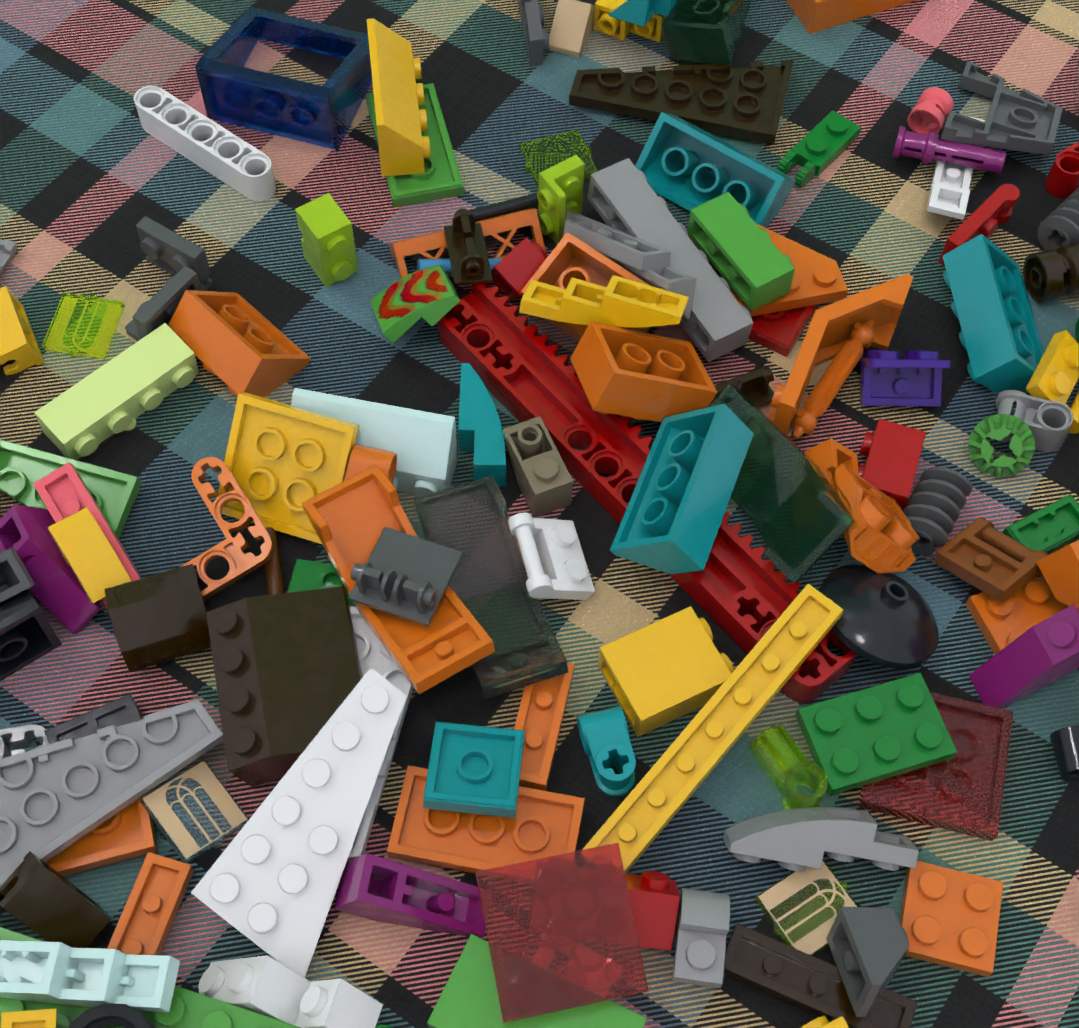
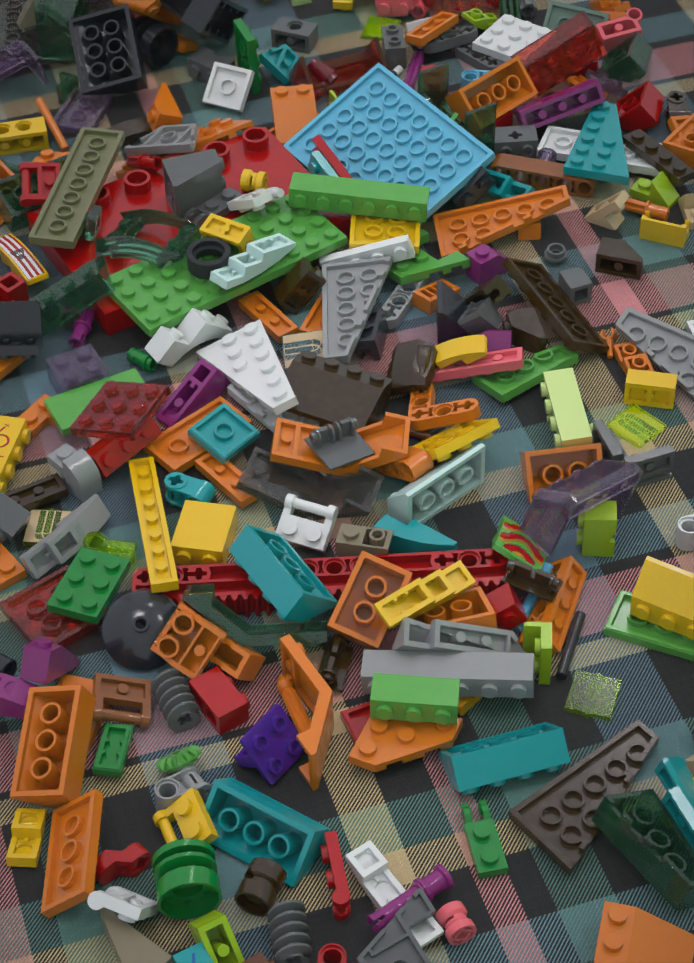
camera: 130 degrees right, 15 degrees down
(315, 232) = (576, 494): none -> clear purple windscreen

